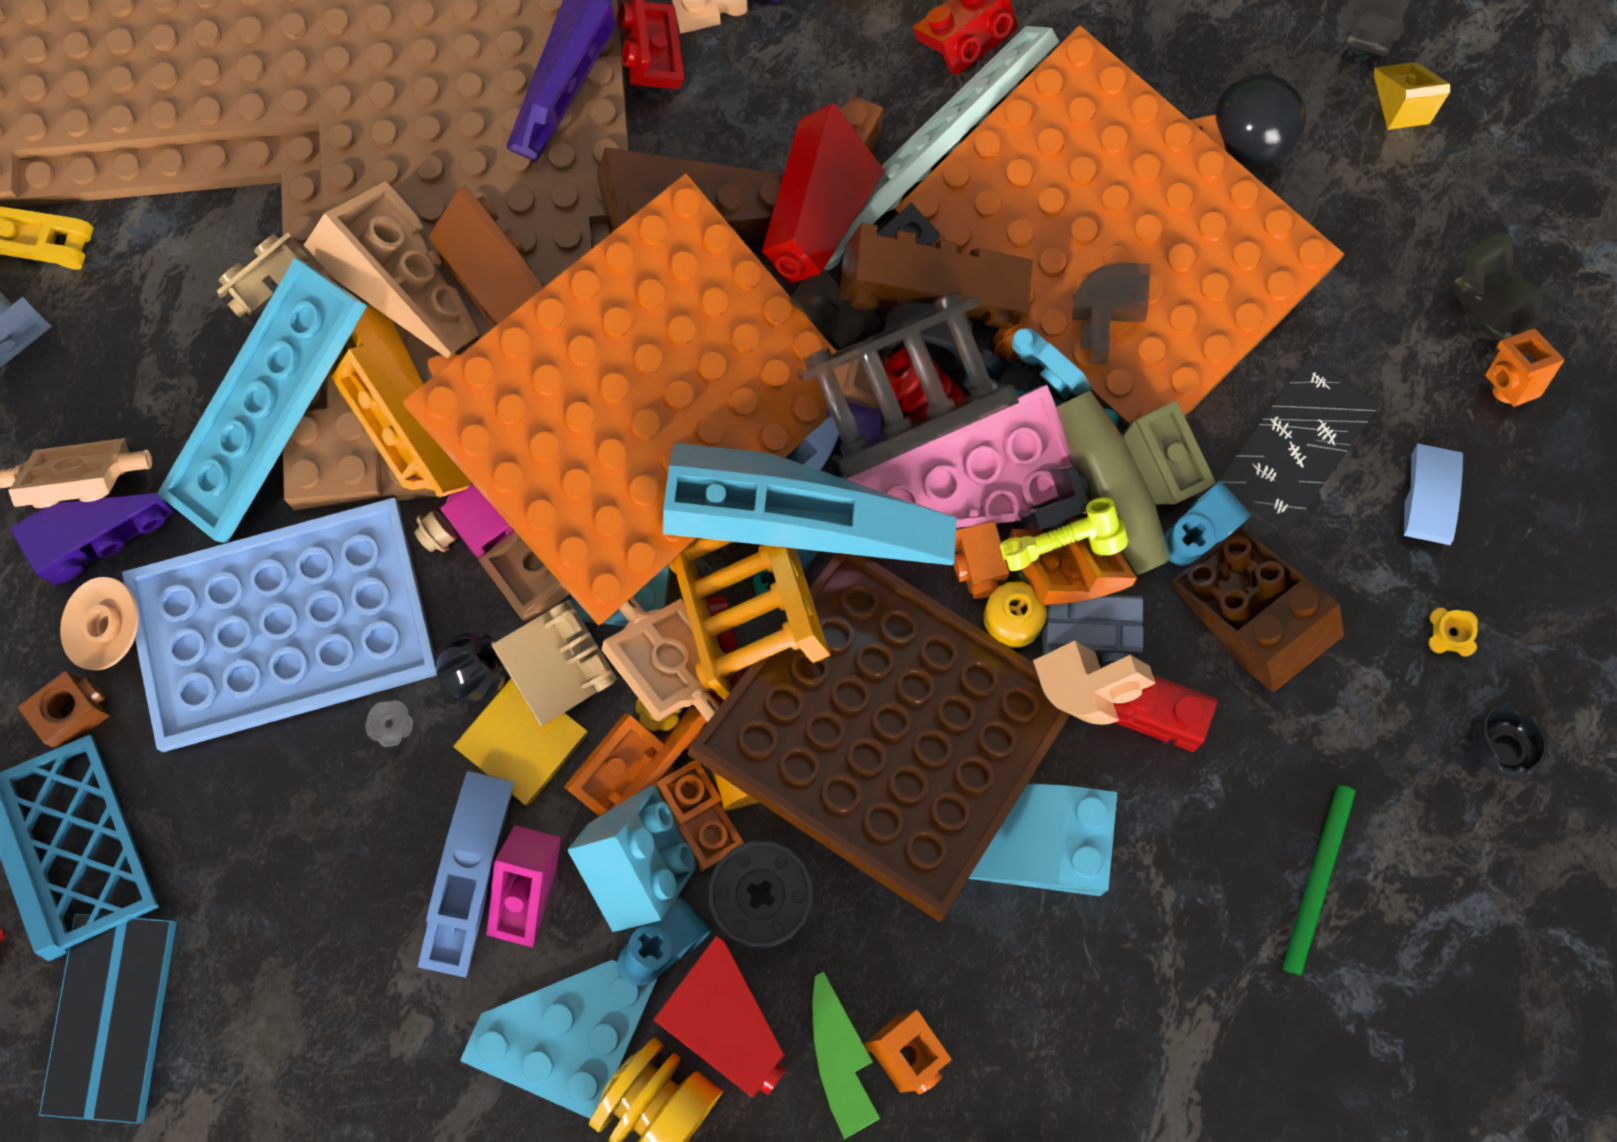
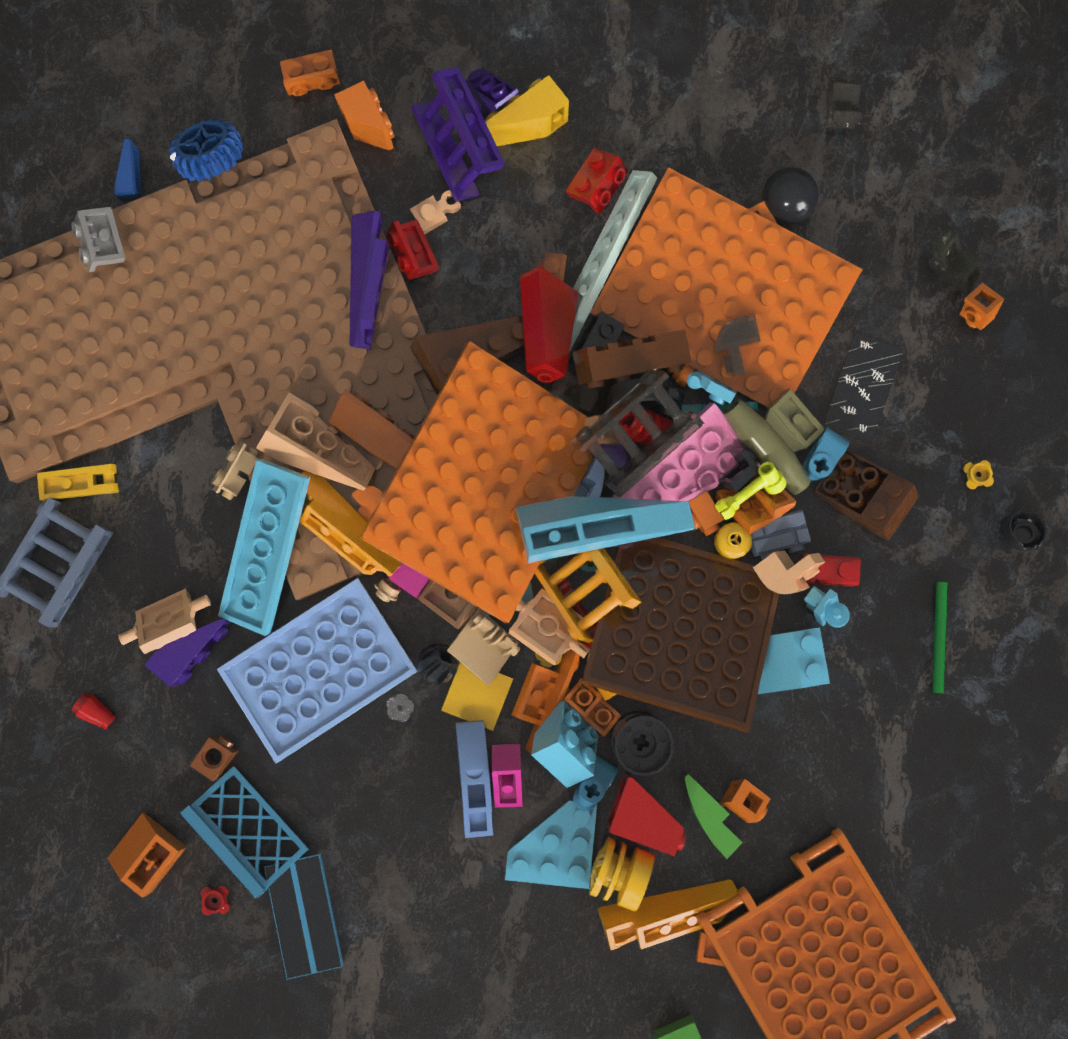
camera: 15 degrees left, 10 degrees up
(99, 623) = (206, 702): light nougat dish -> none
(1138, 764) = (827, 608): none -> medium azure hips
(1409, 94) = (872, 147): yellow slope -> none
(1434, 494) = (949, 396): light blue slope -> none

